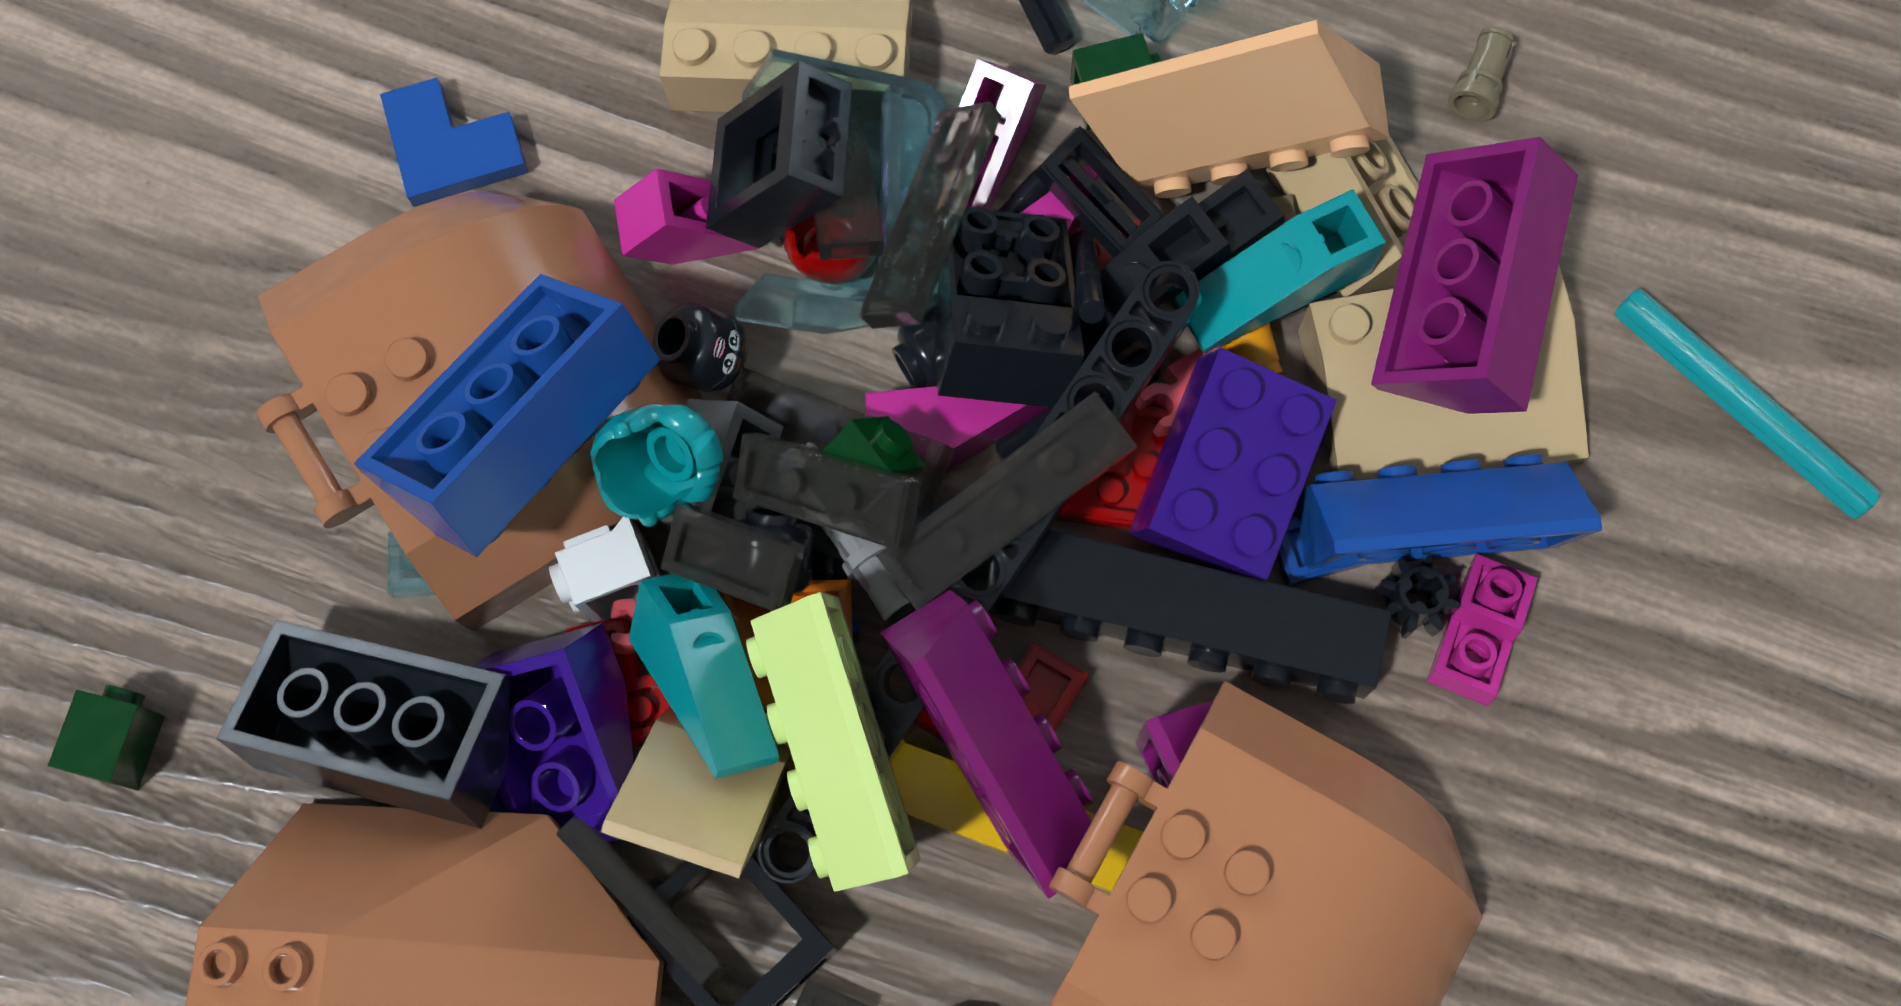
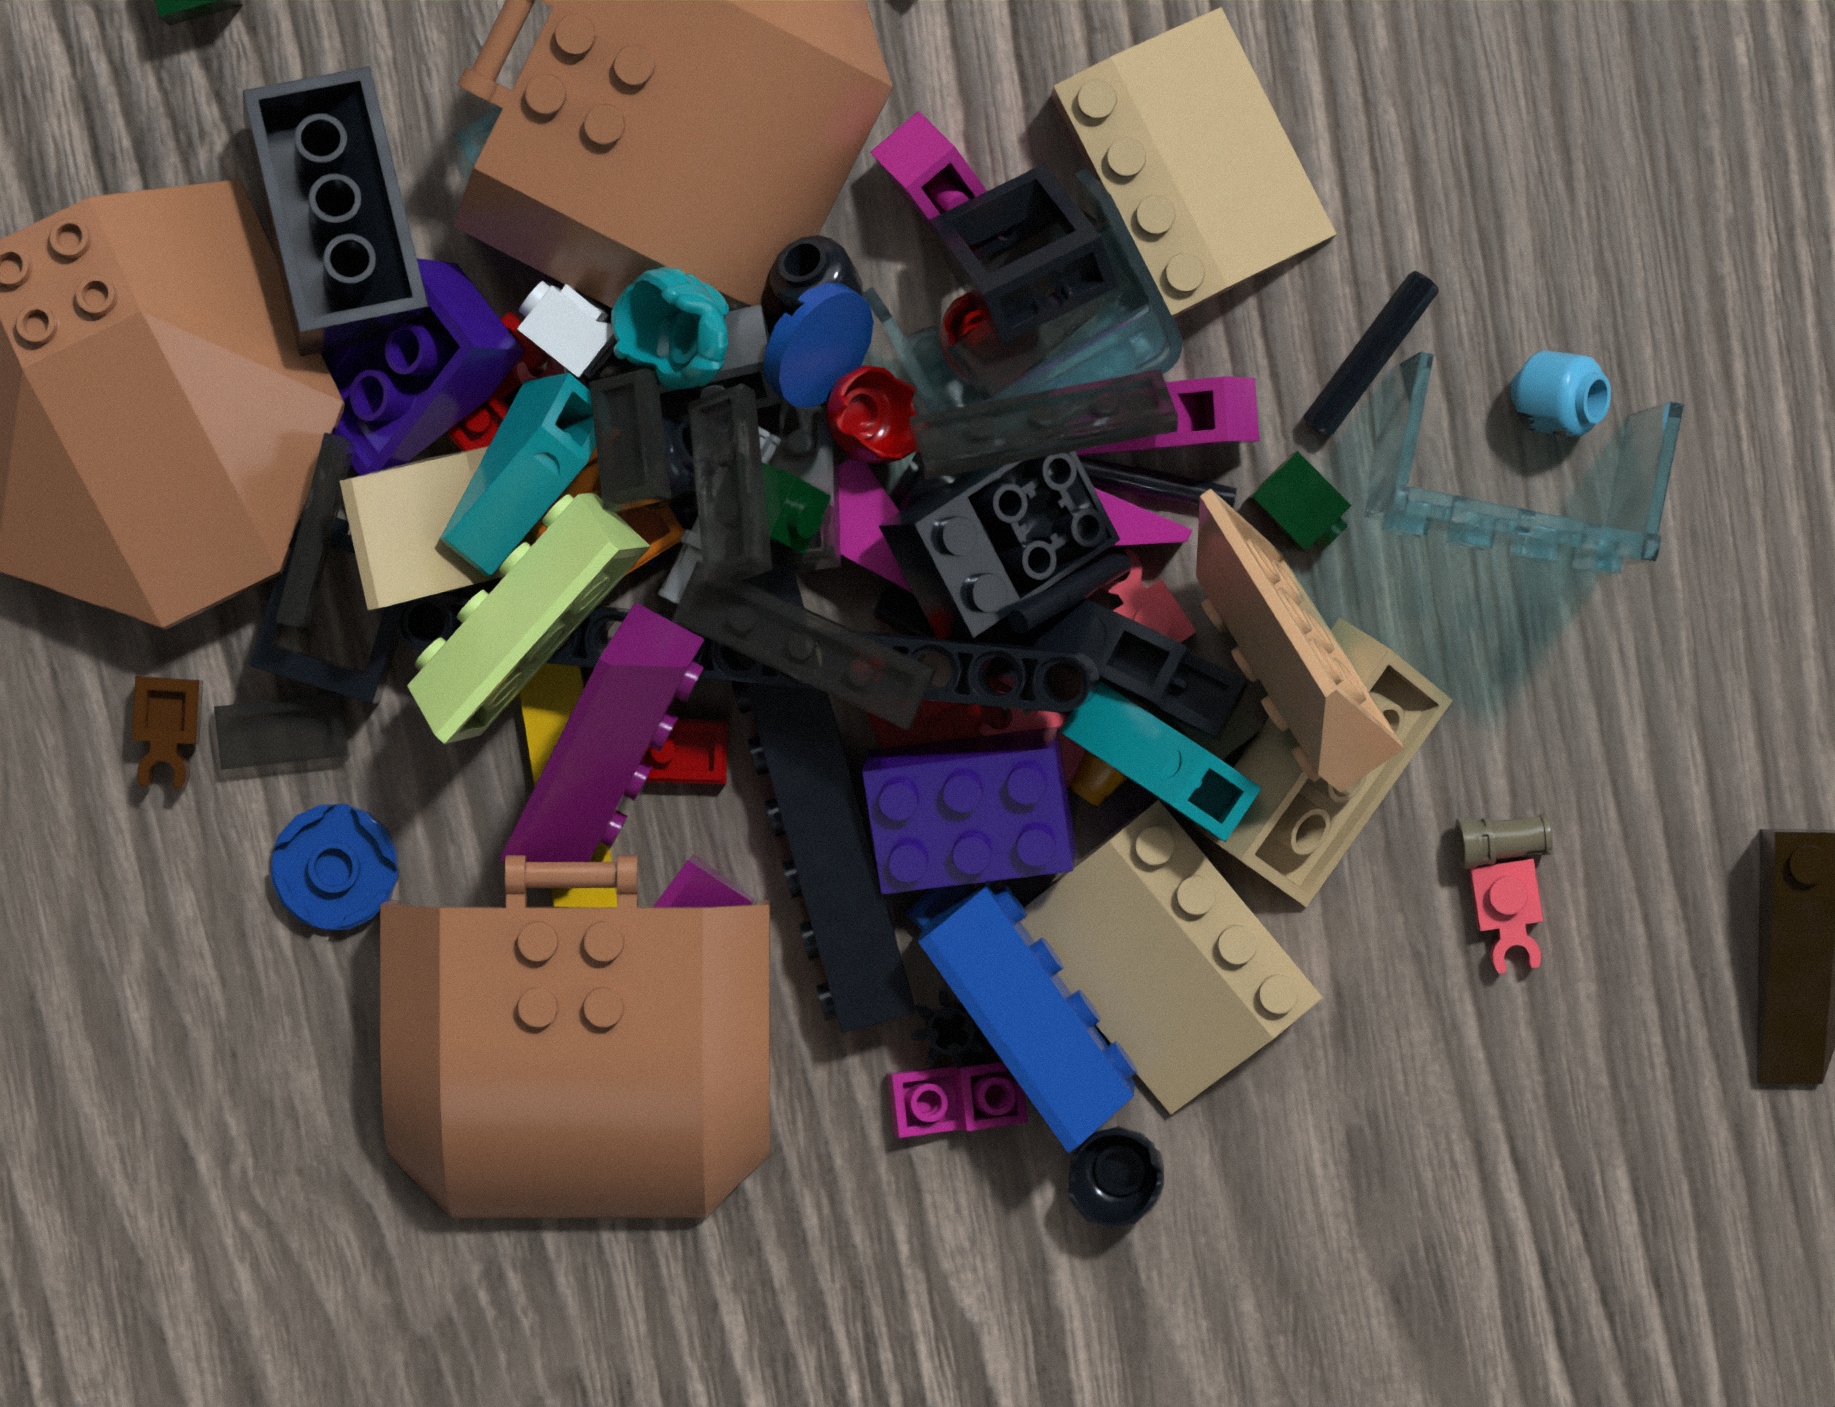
camera: 55 degrees right, 15 degrees up
(510, 411) = (637, 186): blue slope -> none
(751, 360) = (818, 344): none -> blue tile
(841, 359) = (871, 415): none -> red hair
(1085, 210) = (1147, 609): black tile -> none
(1477, 277) = (1247, 935): magenta slope -> none
(1539, 100) = (1506, 900): none -> coral plate
(1639, 525) = (1115, 1177): none -> black hair
(1748, 404) = (1299, 1227): teal axle -> none

